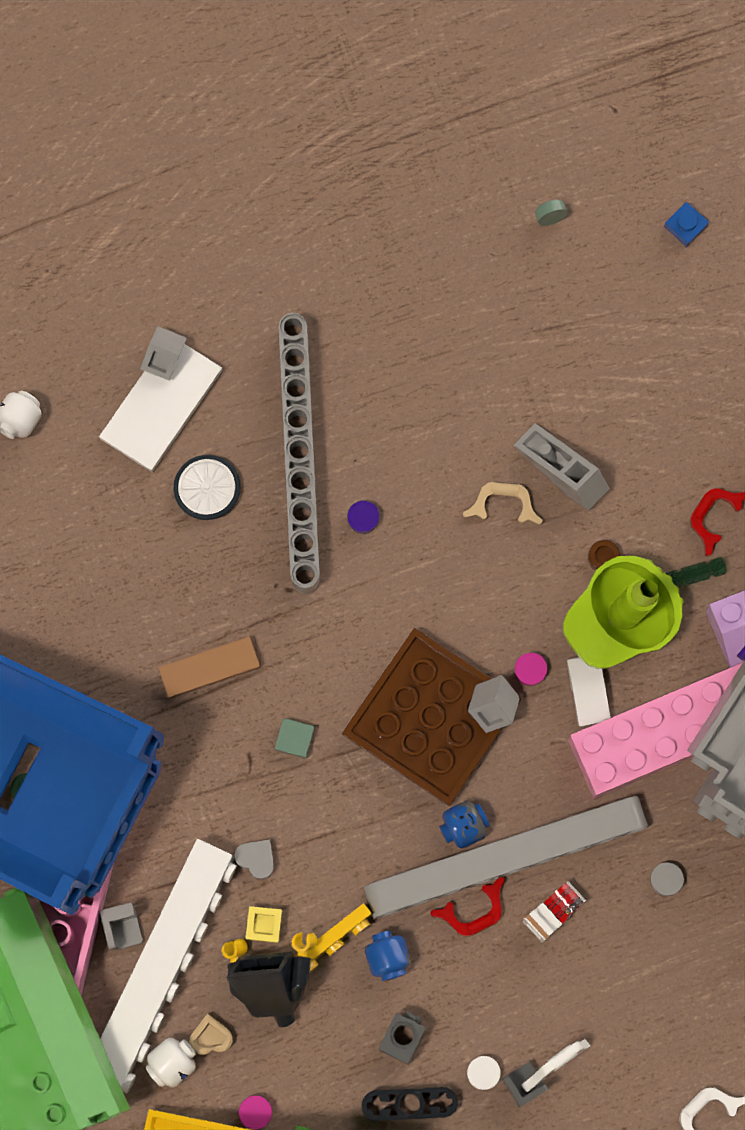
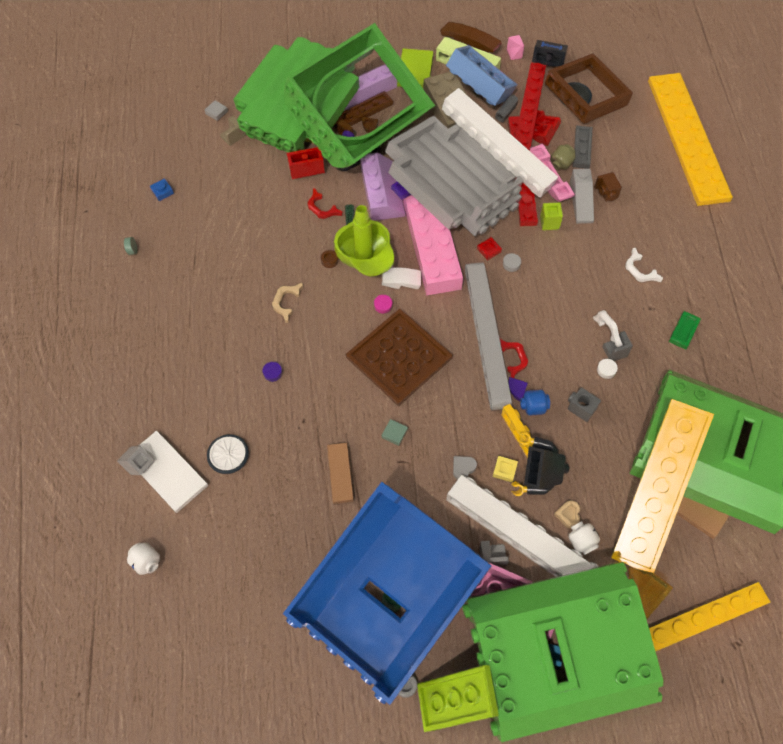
camera: 80 degrees left, 15 degrees down
(255, 1112) = (618, 496): dark pink tile -> none
(294, 438) = (215, 391): light grey beam -> none
(414, 924) = (517, 388): none -> dark purple tile
(434, 1095) = (615, 415): black beam -> none
(464, 824) = (464, 350): blue head -> none
(494, 704) = (400, 318): light grey panel -> none
(554, 911) = (522, 316): leg -> none
(563, 466) = (274, 265): light grey slope -> none
(689, 834) = (489, 248): none -> red tile

